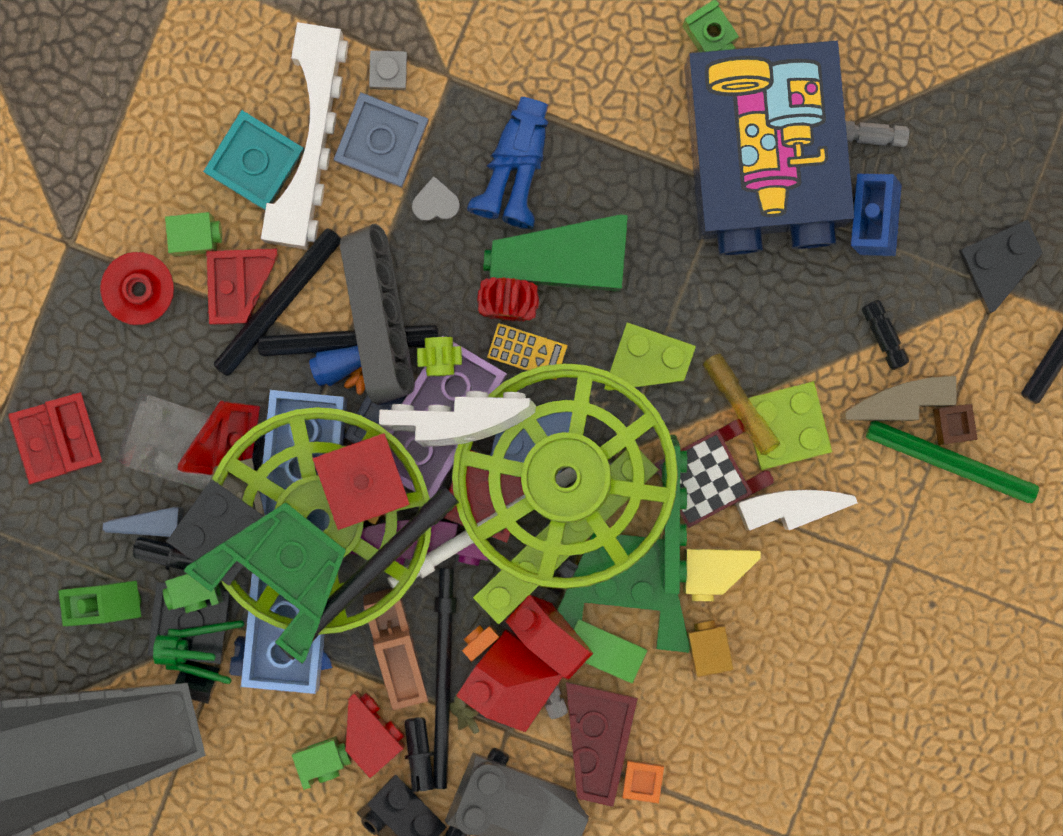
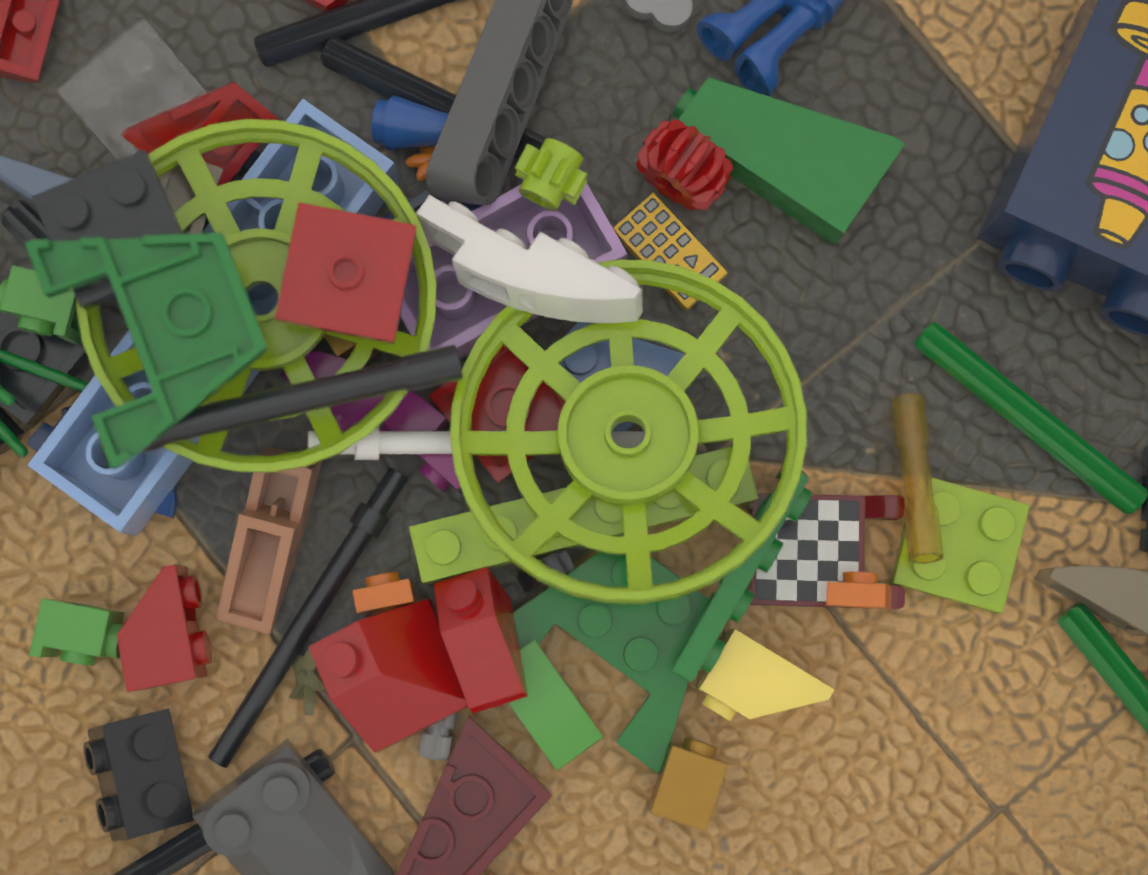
camera: 30 degrees right, 5 degrees down
(419, 754) = (215, 700): black axle -> none
(650, 358) = (829, 352): lime wing -> none
(744, 488) = (859, 591): none -> orange plate
(787, 329) = (1031, 418): none -> green axle
(792, 506) = (908, 655): white slope -> none

